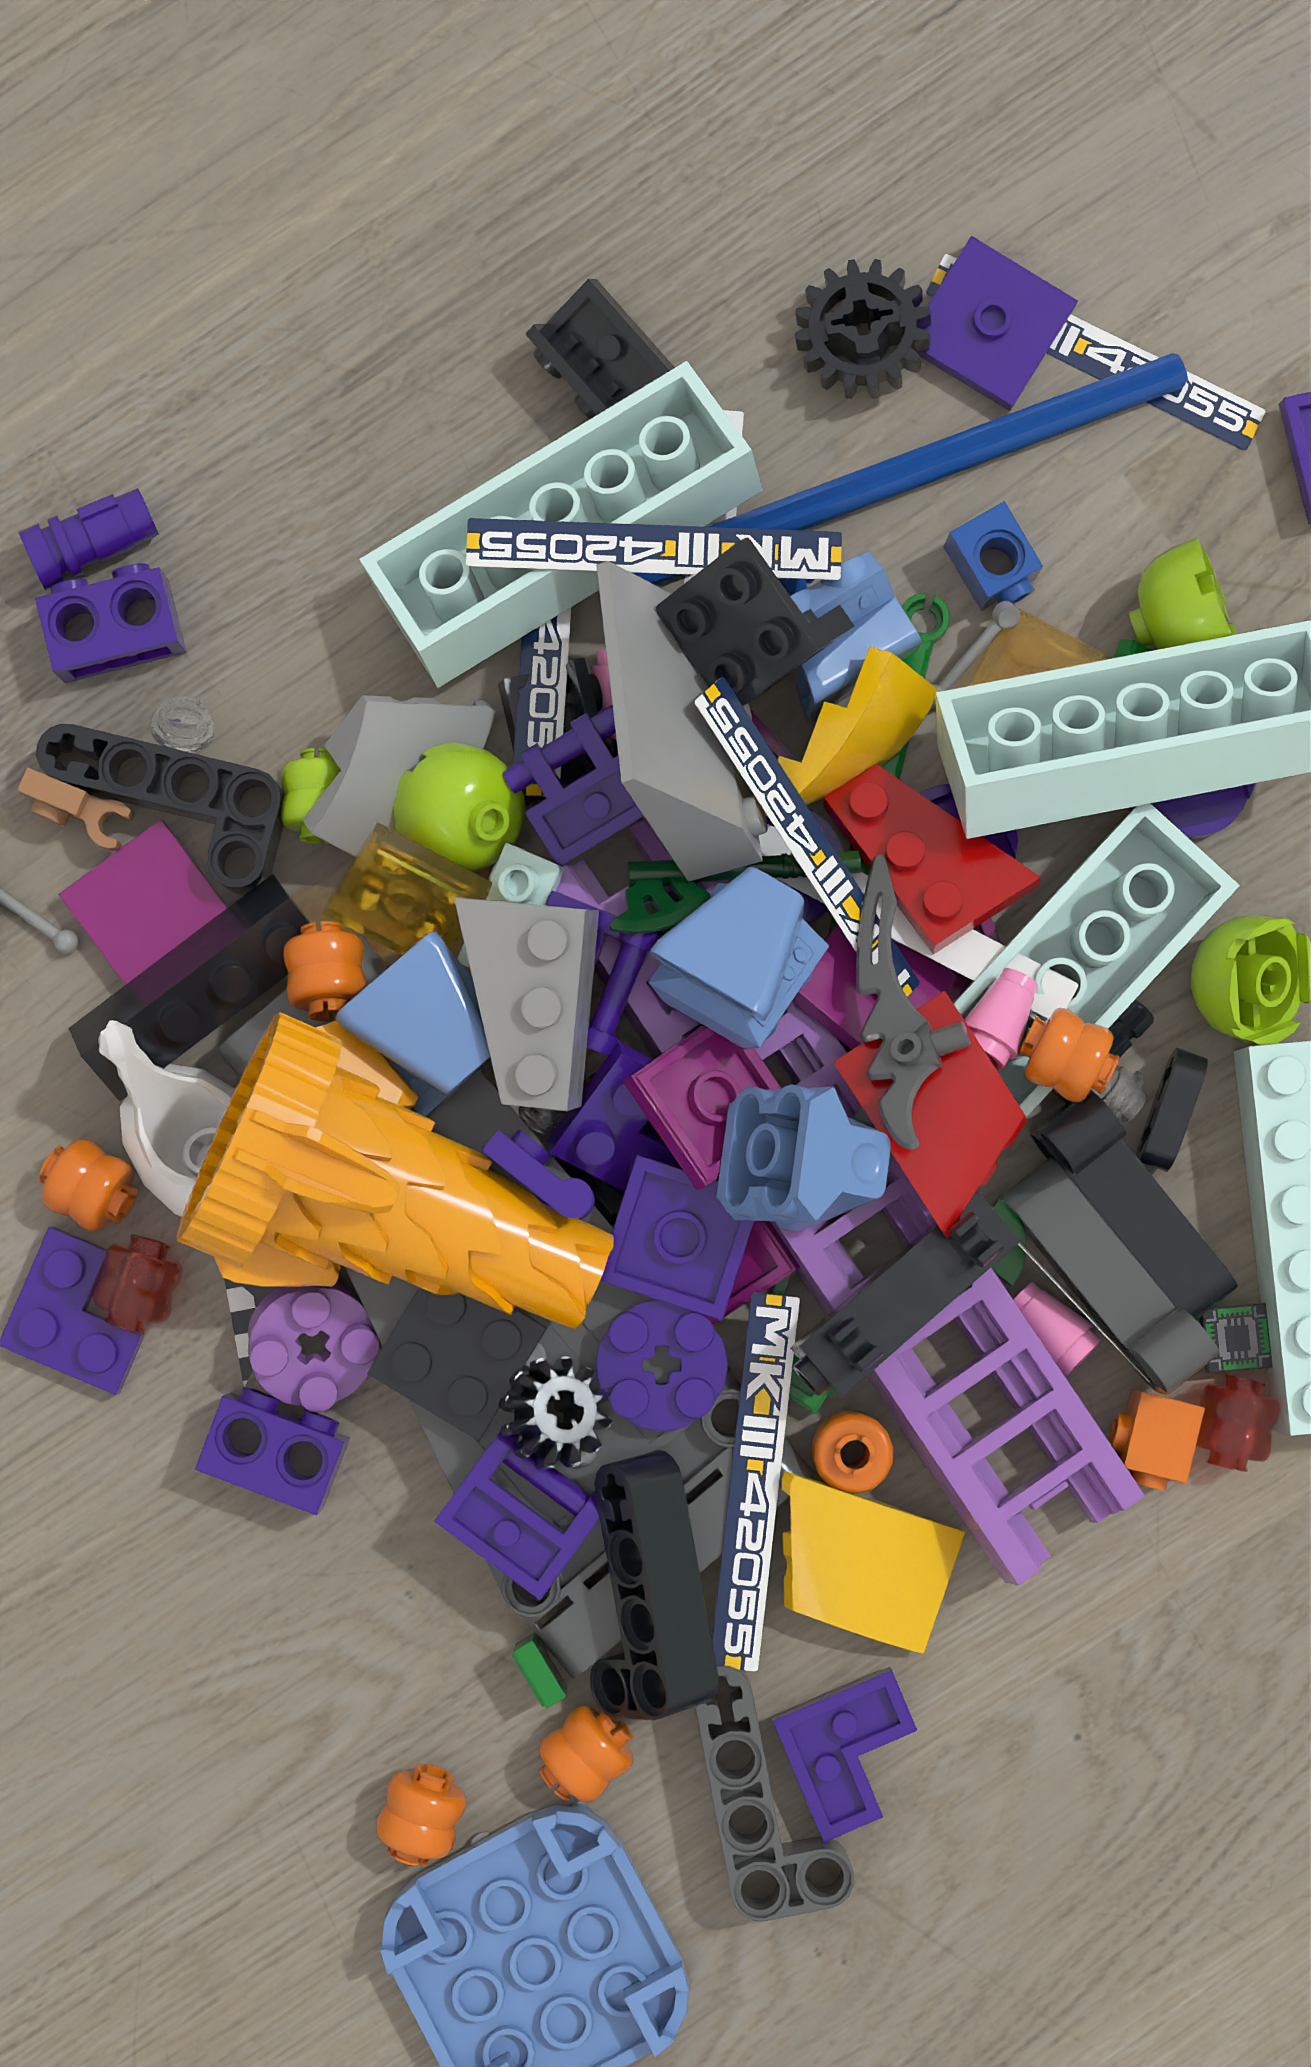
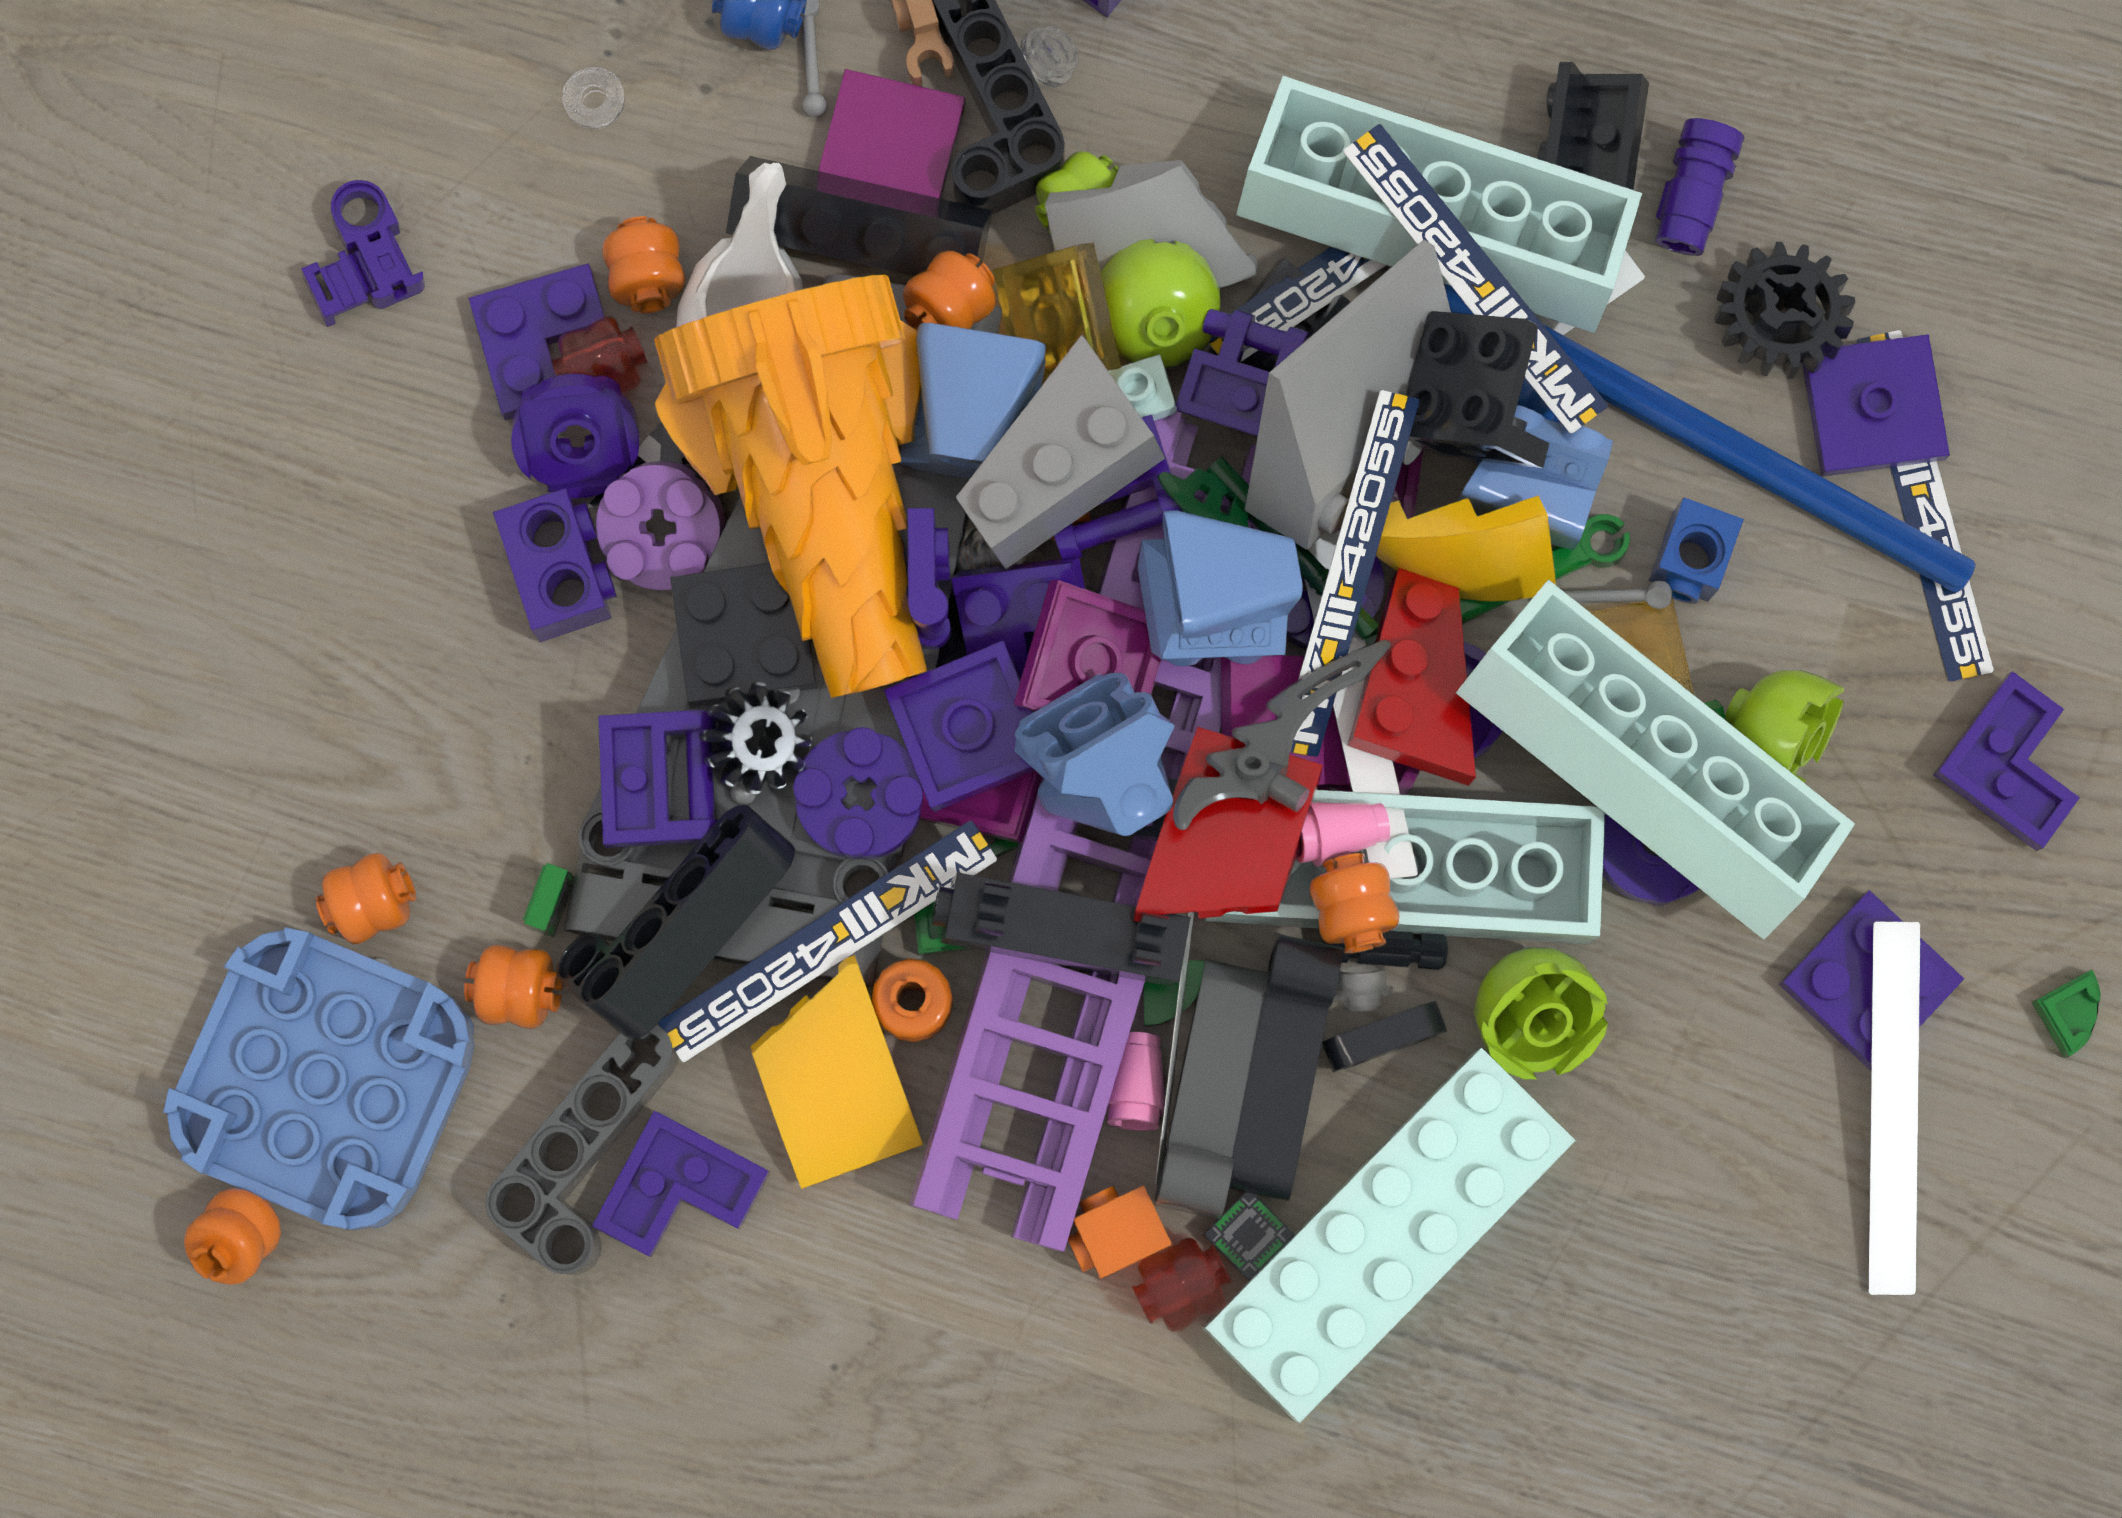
camera: 55 degrees right, 5 degrees down
(161, 1330) = (570, 401): none -> dark purple plate
(712, 317) = (1695, 192): none -> dark purple axle

